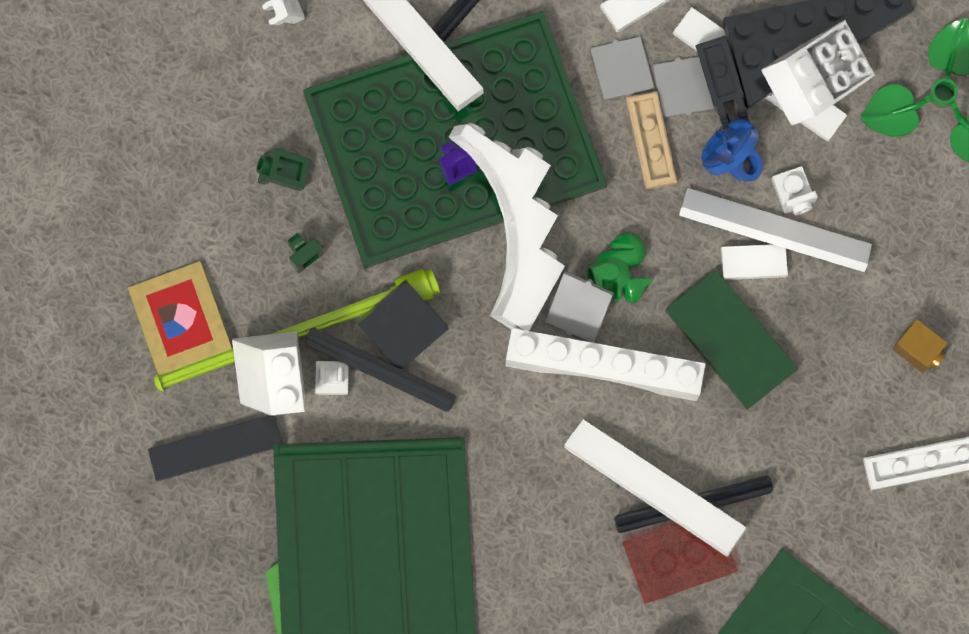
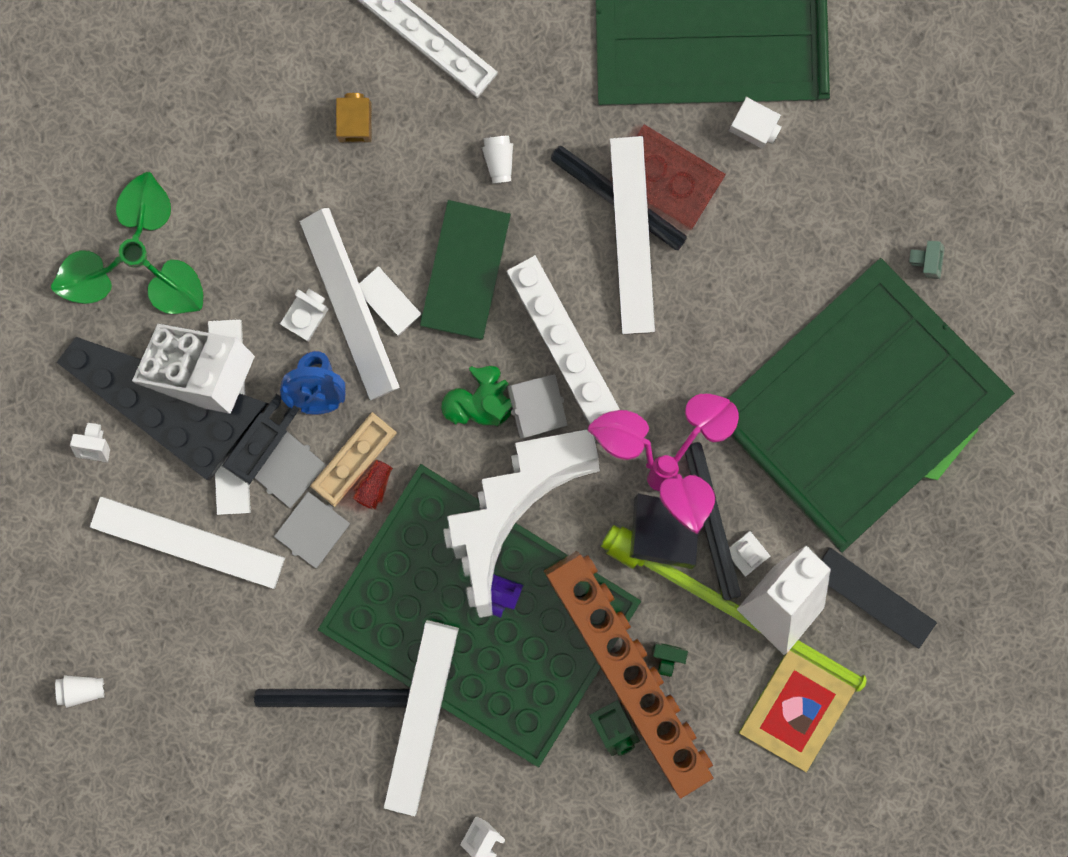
camera: 120 degrees left, 10 degrees up
(206, 188) = (683, 775): none -> dark orange brick
(418, 347) = (687, 498): none -> dark pink plant
(618, 136) = (372, 486): none -> clear red cone
(800, 435) = (498, 156): none -> white cone

